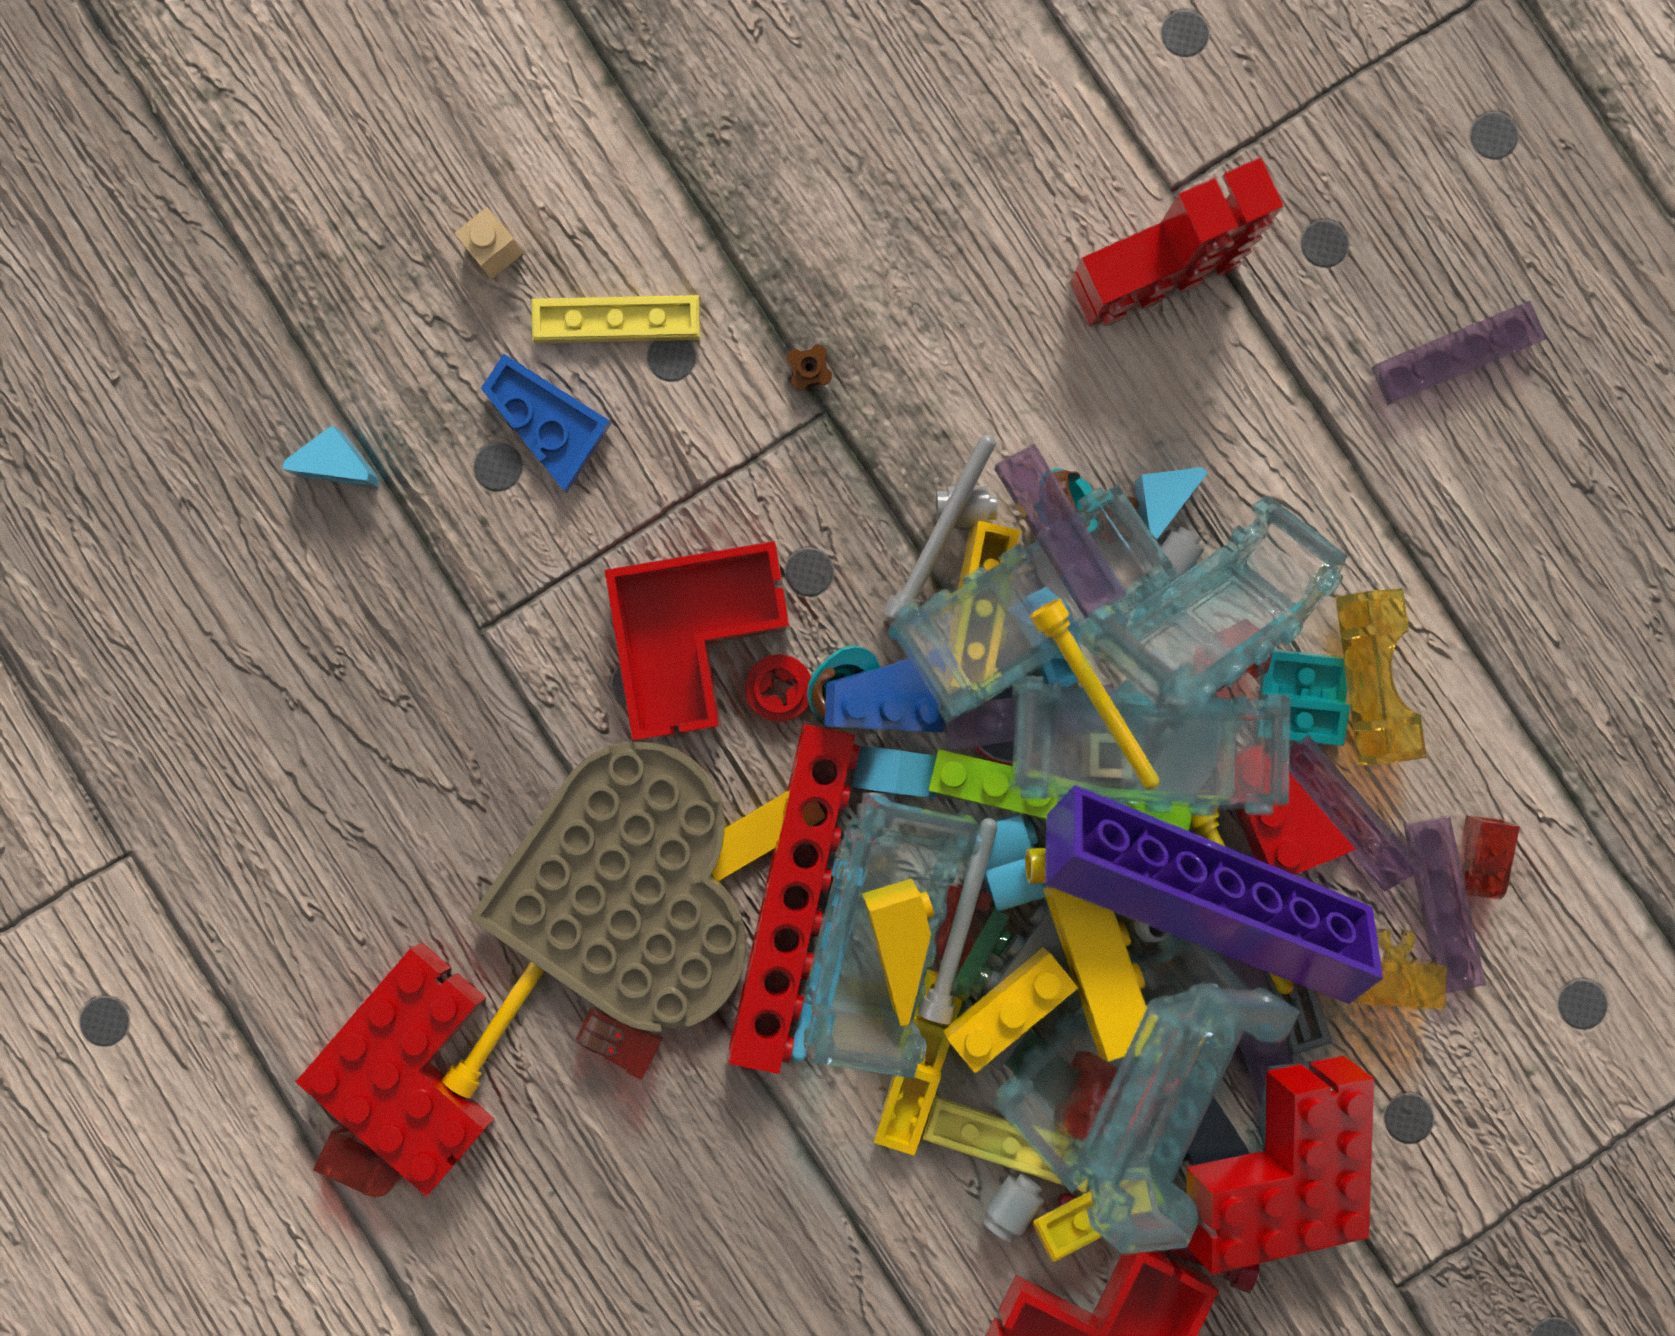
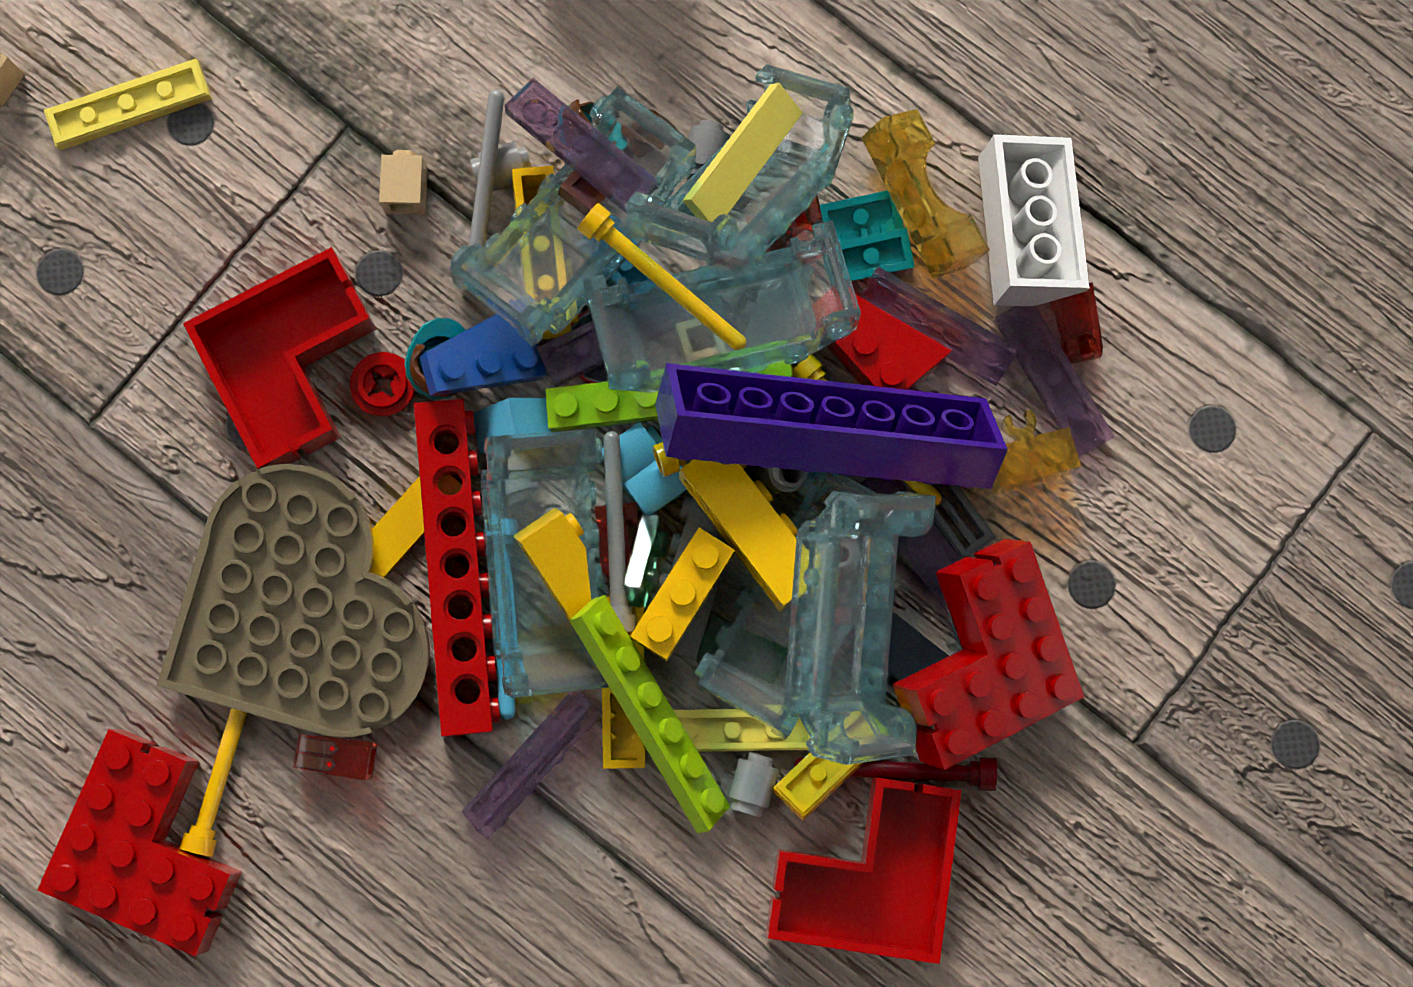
camera: 20 degrees left, 5 degrees down
(355, 1164) = (122, 956): clear red leg -> none
(546, 418) = (90, 211): blue wing -> none
(802, 1116) = (531, 763): none -> clear purple plate
(804, 378) = (327, 97): reddish brown plate -> none
(863, 491) = (403, 183): none -> tan brick
(939, 1112) = (650, 713): none -> lime plate
(1042, 578) = (581, 193): none -> reddish brown plate
(1078, 1112) = (772, 672): clear red leg -> none
(1164, 494) = (678, 95): medium azure slope -> none
(1215, 588) = (743, 154): none -> light yellow tile
(1481, 742) = (1032, 220): none -> white slope

